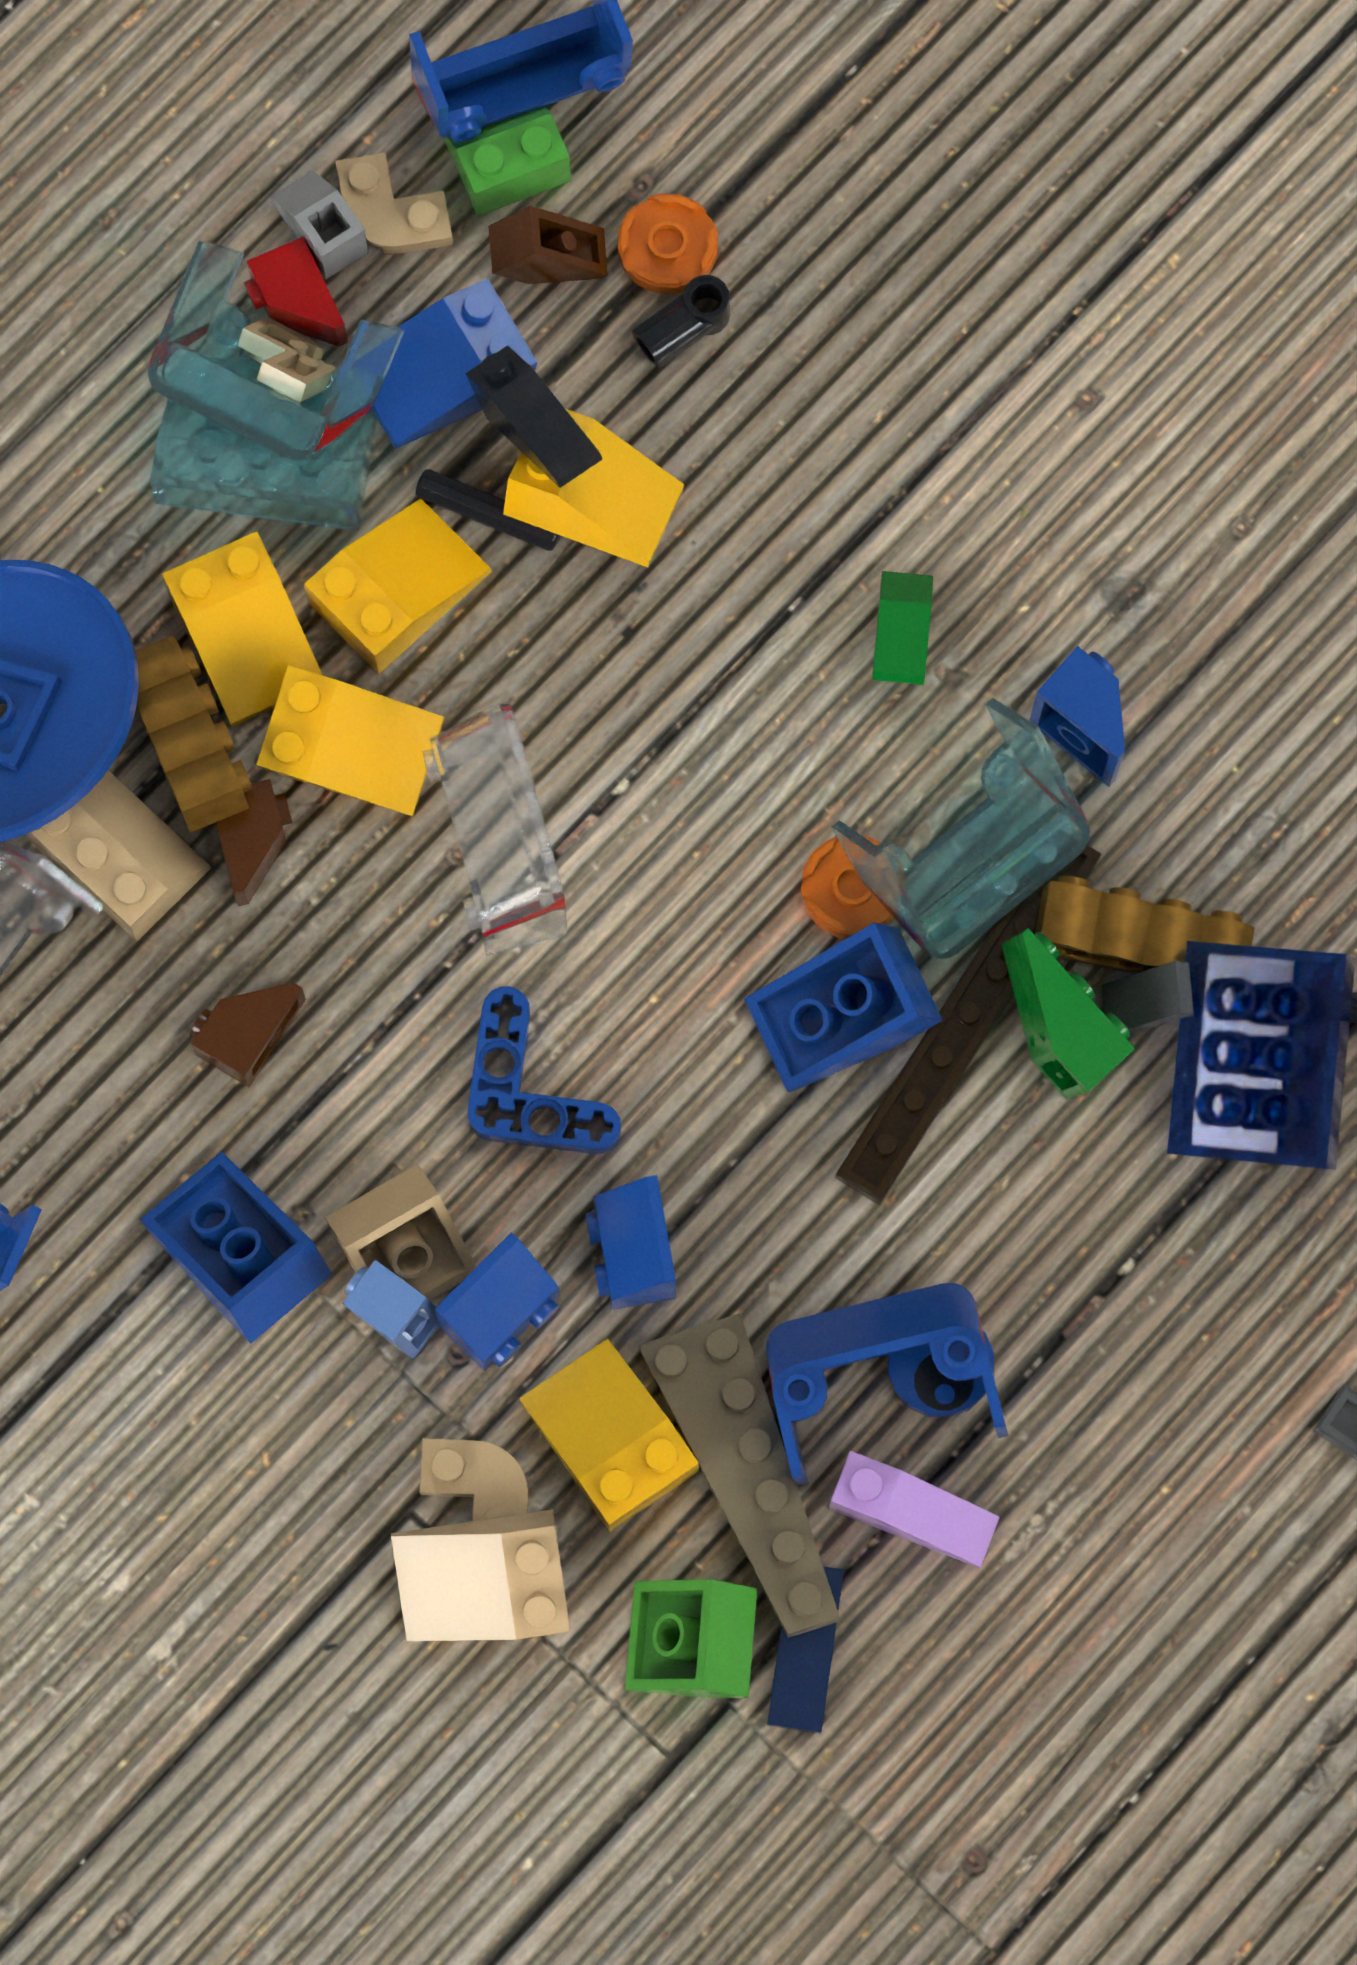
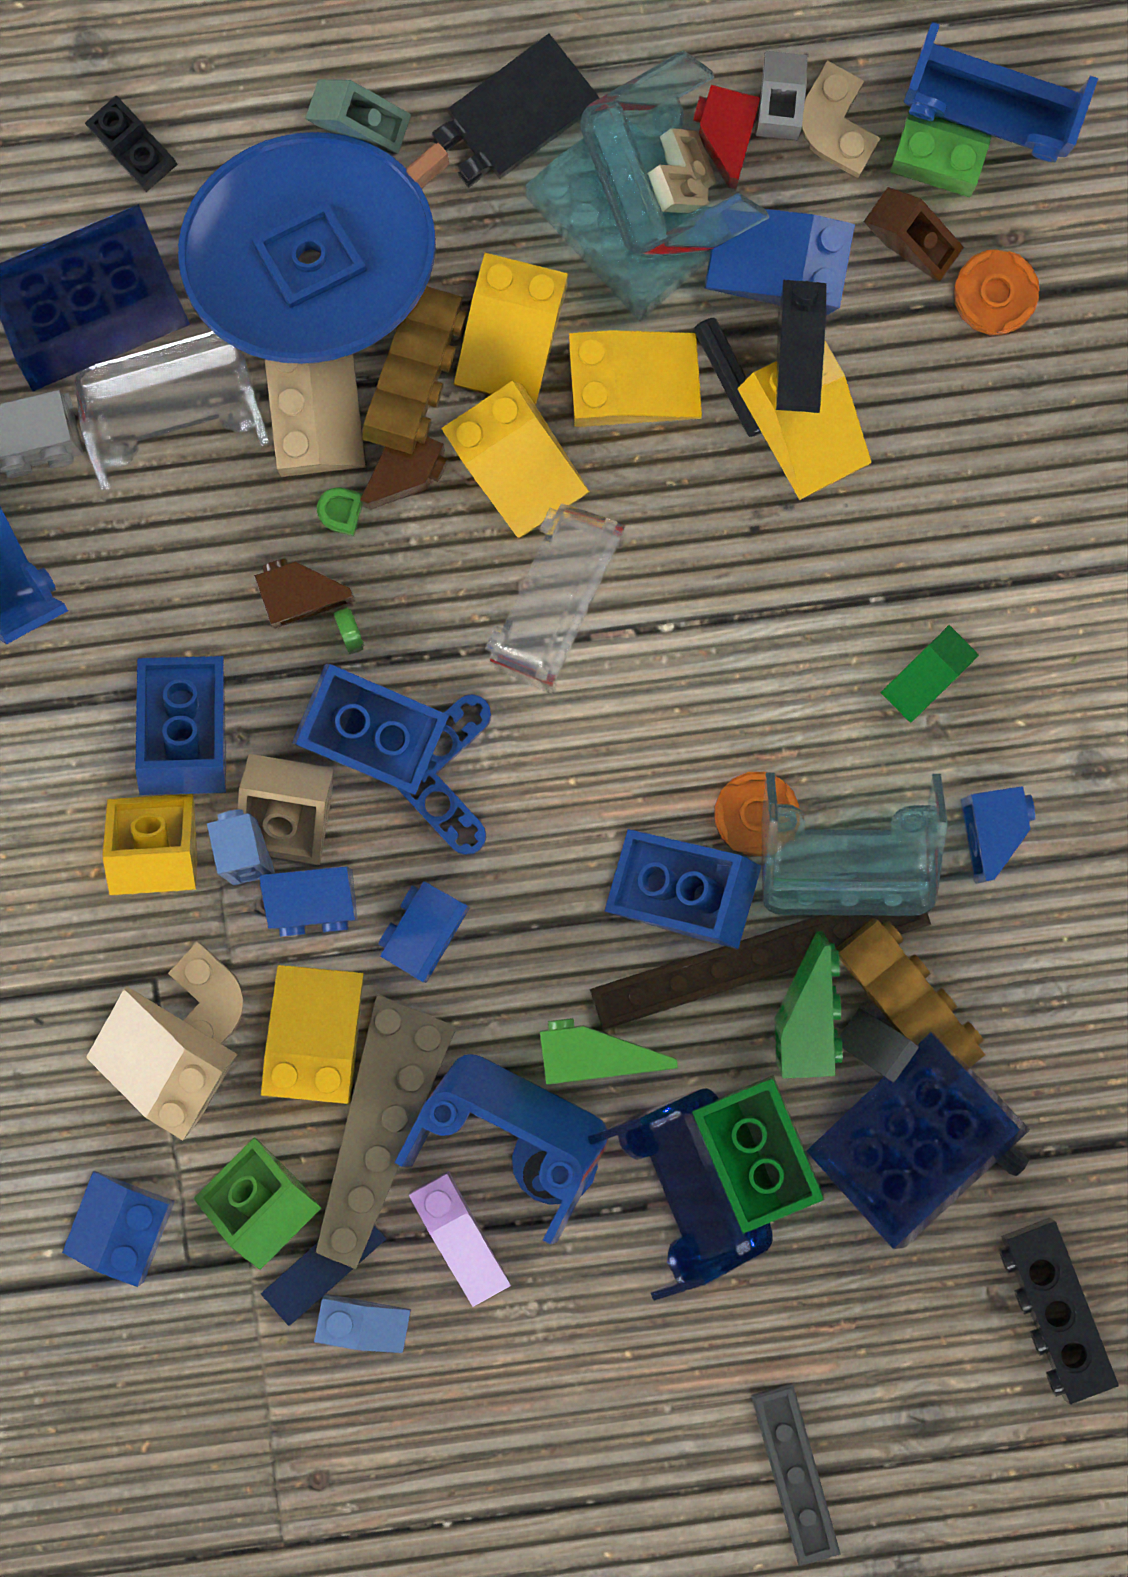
camera: 40 degrees right, 10 degrees up
(39, 538) = (428, 165): none -> nougat tile
(81, 431) = (516, 111): none -> black tile
(220, 925) = (340, 510): none -> bright green tile
(301, 1382) = (150, 844): none -> yellow slope
(323, 1027) = (349, 630): none -> bright green tile
(420, 1099) = (370, 728): none -> blue slope
(575, 1776) = (118, 1229): none -> blue slope
(681, 324) = (956, 354): black piece -> none
(889, 1224) = (586, 1054): none -> bright green slope
(889, 1670) = (361, 1324): none -> medium blue slope
(1093, 1266) = (708, 1226): none -> clear blue windscreen
(1126, 1188) = (758, 1154): none -> green slope

